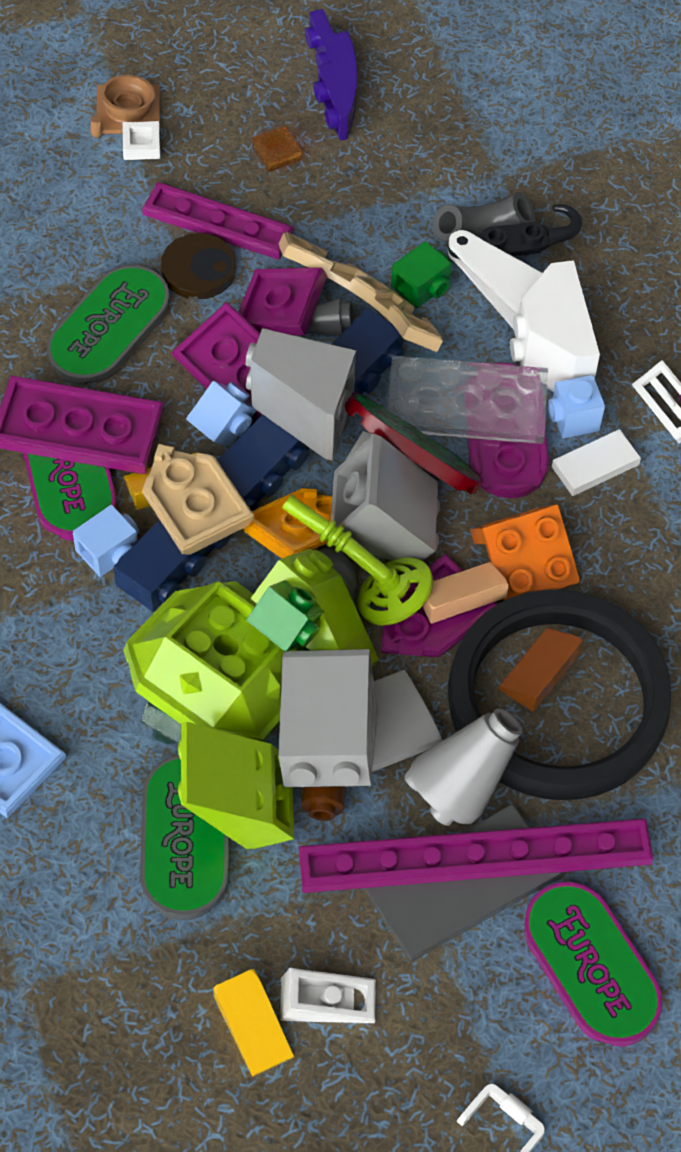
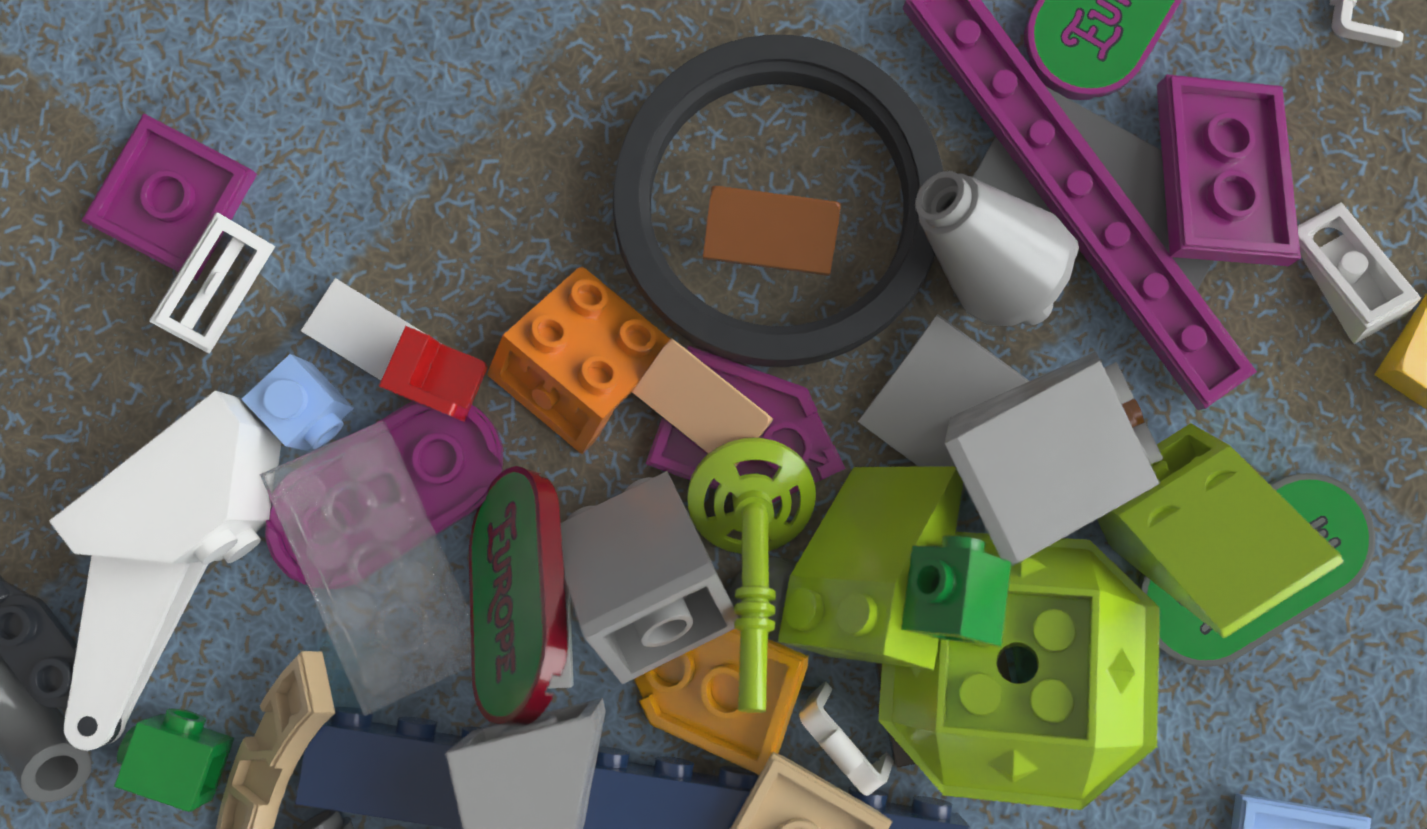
camera: 120 degrees left, 25 degrees up
(232, 555) = (839, 746): none -> white piece
(436, 949) = (1227, 171): none -> magenta tile
(555, 469) = (433, 374): none -> red panel

